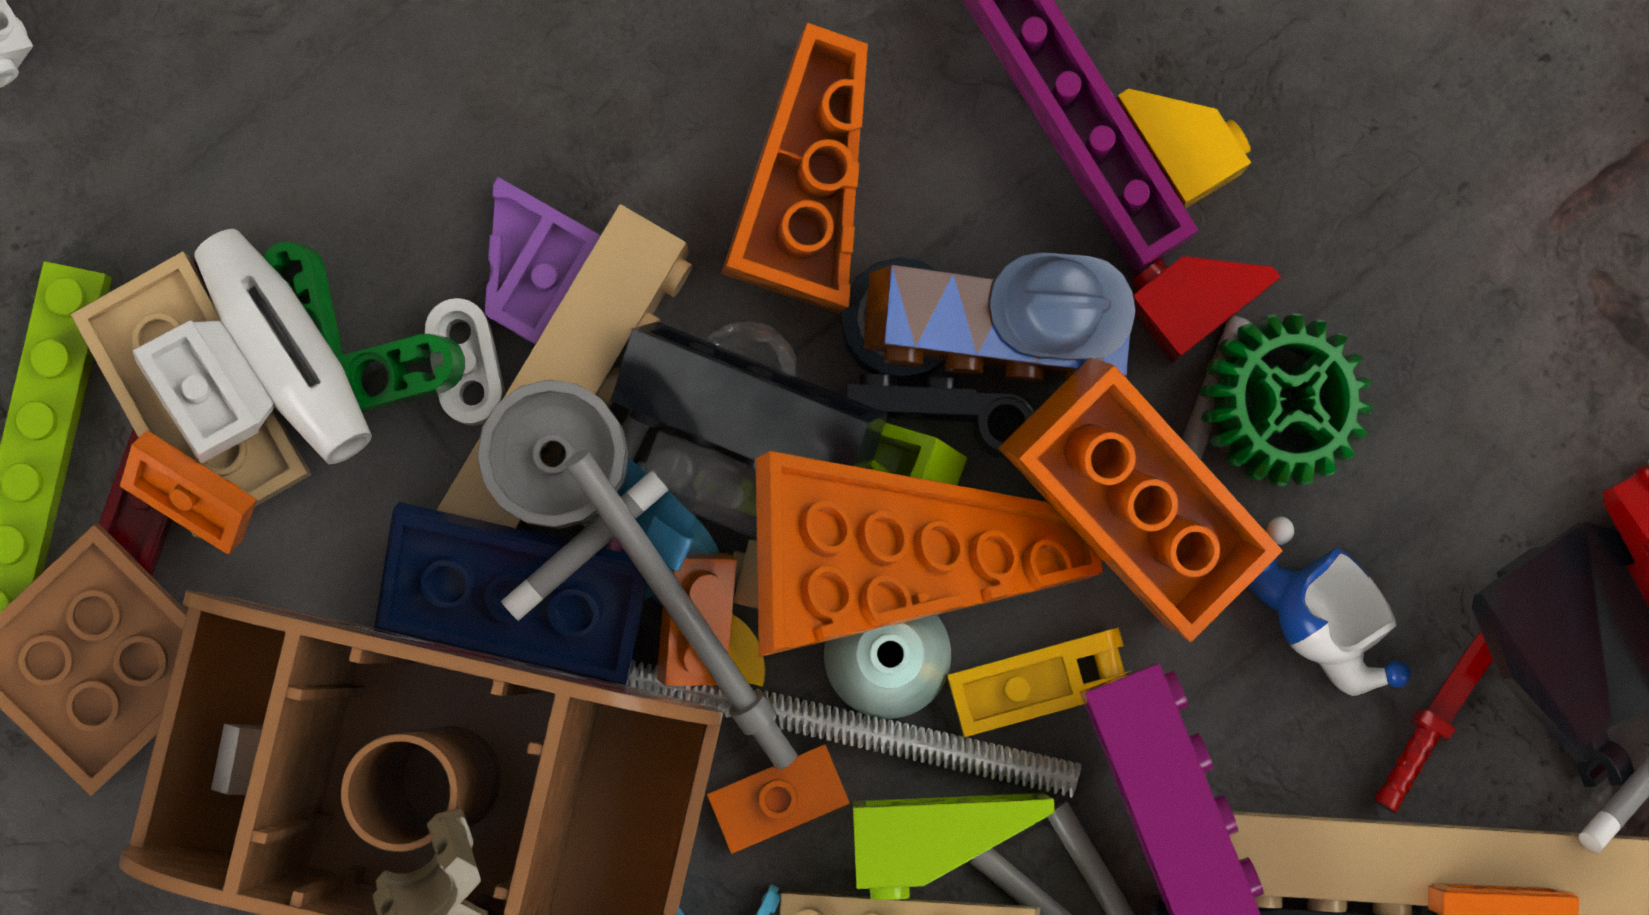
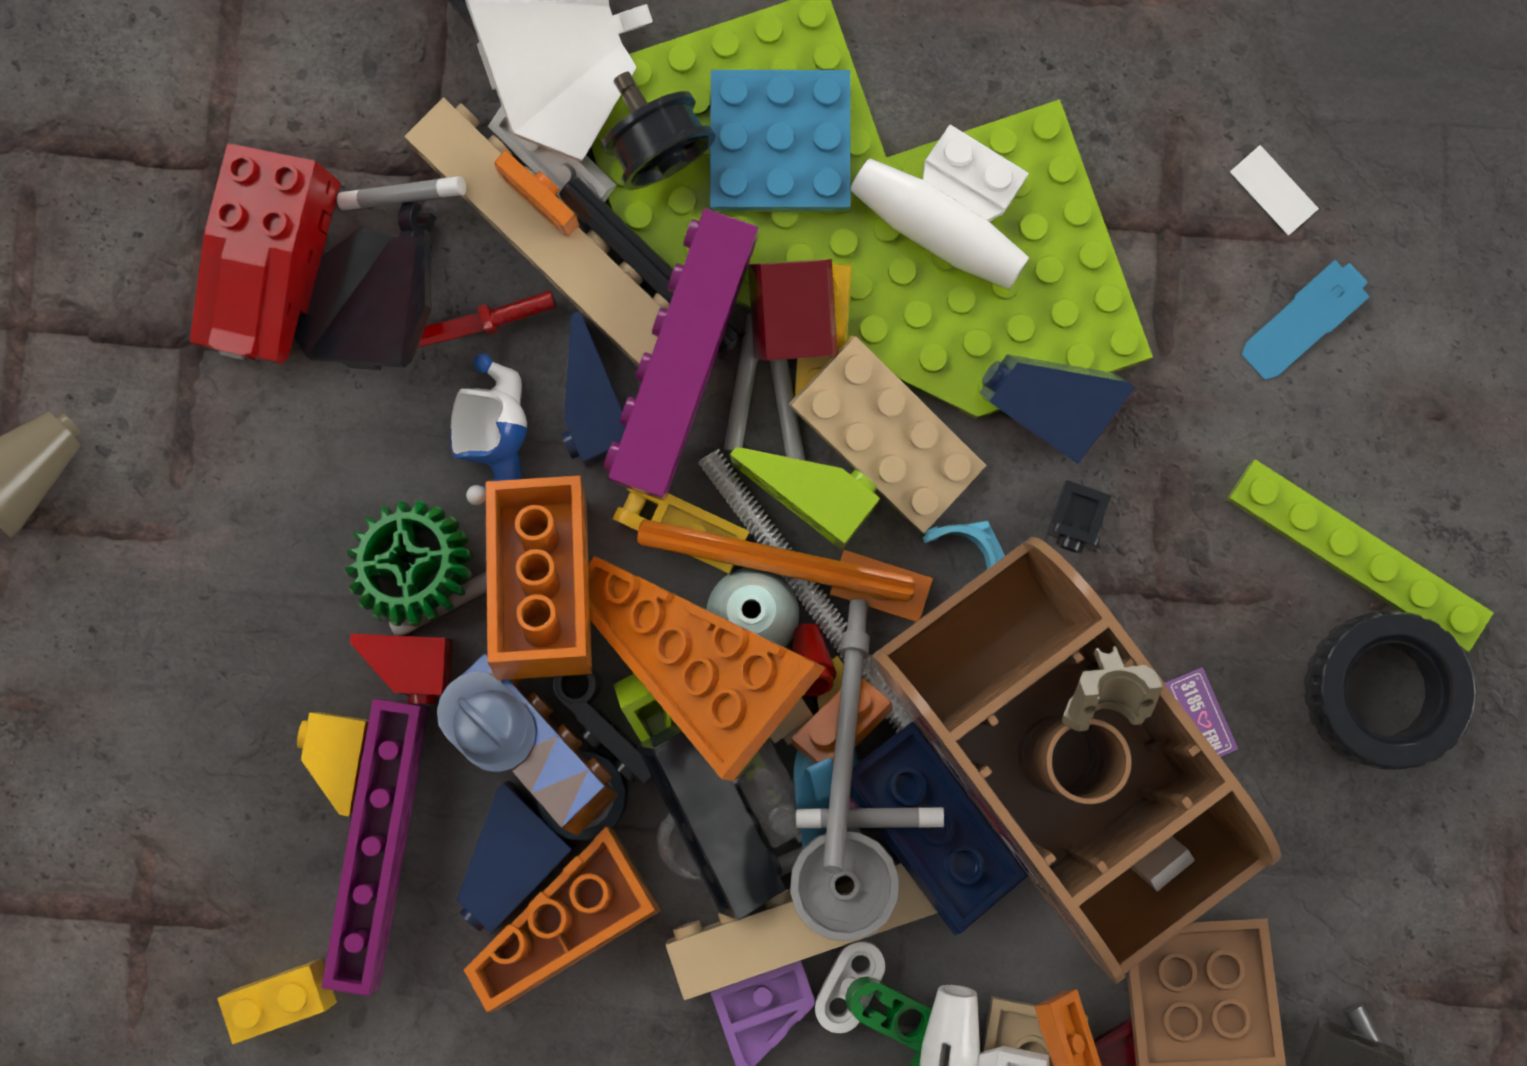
camera: 140 degrees left, 0 degrees up
(793, 669) = (811, 645): none -> red cone
(909, 730) = (776, 560): none -> orange axle
(918, 192) = (509, 859): none -> dark blue slope
(1251, 733) = (590, 399): none -> dark blue slope

